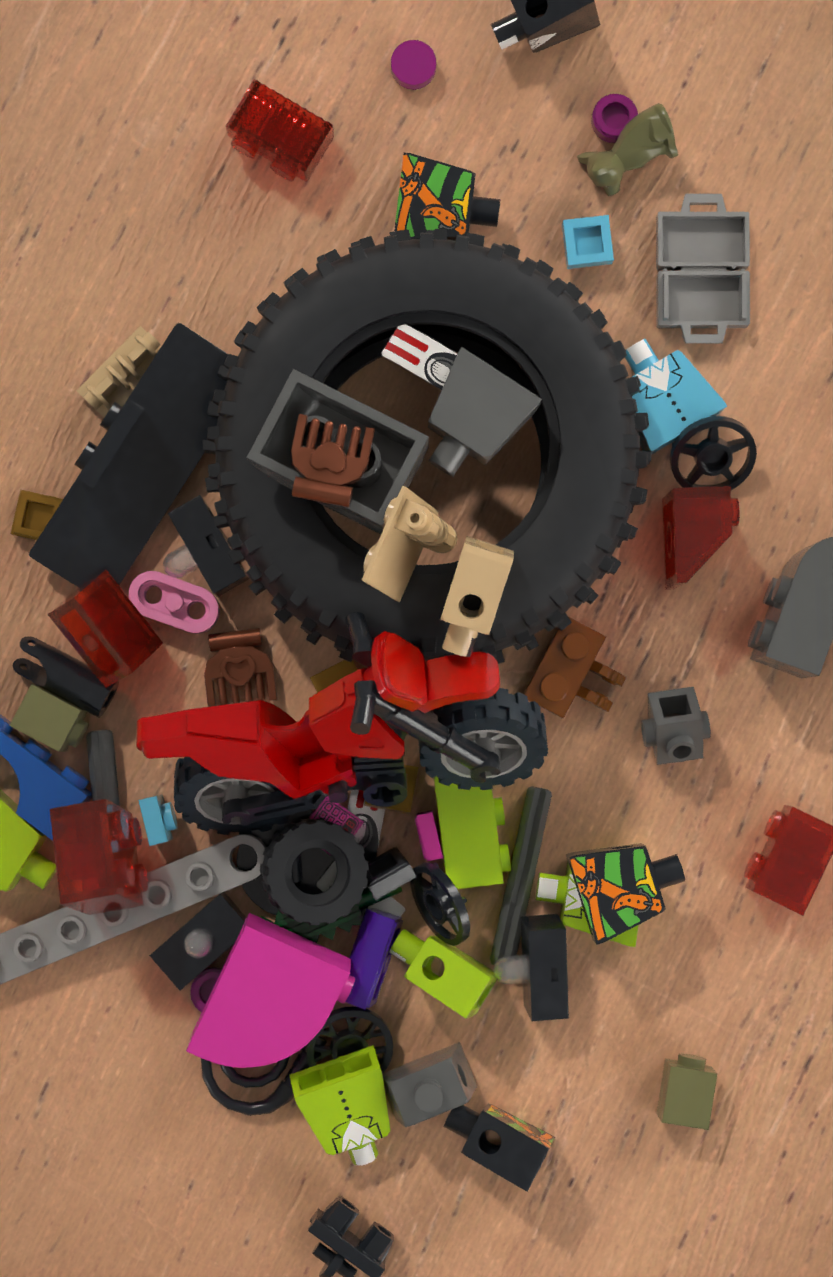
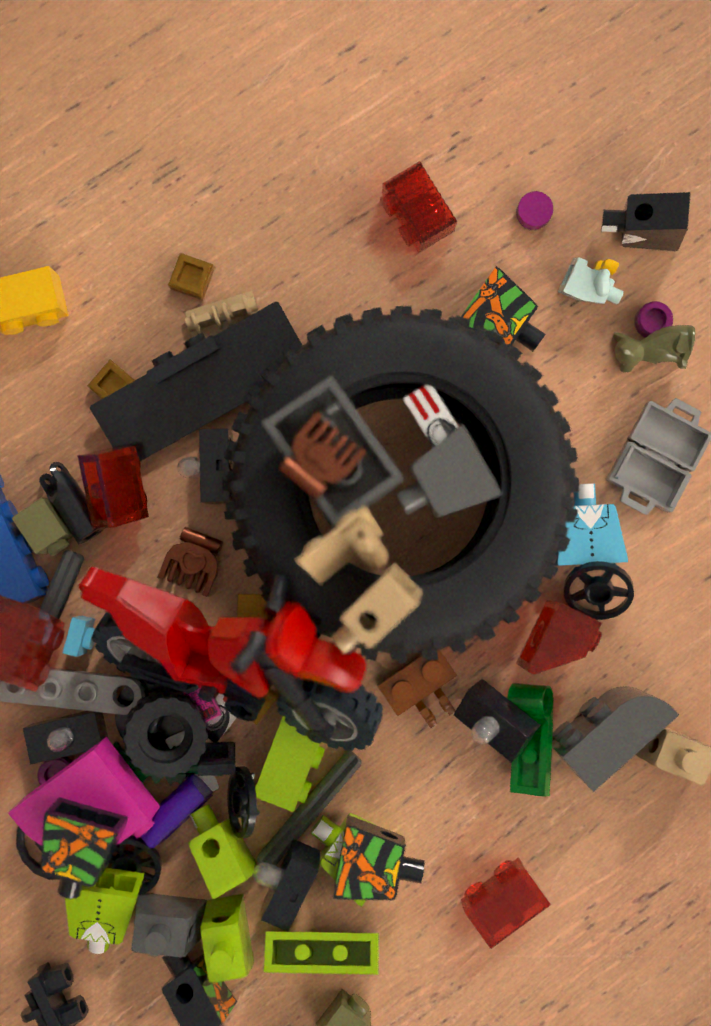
camera: 35 degrees right, 0 degrees up
(61, 346) = (191, 276): none -> pearl gold tile
(175, 602) = (173, 493): bright pink plate -> none
(286, 1037) = (78, 844): none -> torso
(428, 835) = (260, 748): dark pink tile -> none
(504, 1064) = (226, 943): none -> lime torso
(520, 117) = (591, 284): none -> light aqua piece
(587, 242) = (590, 395): medium azure plate -> none
(619, 1022) = (321, 953): none -> lime brick
(675, 660) = (496, 720): none -> black piece
(675, 726) = (471, 767): dark grey brick -> none
(726, 659) = (533, 766): none -> green plate

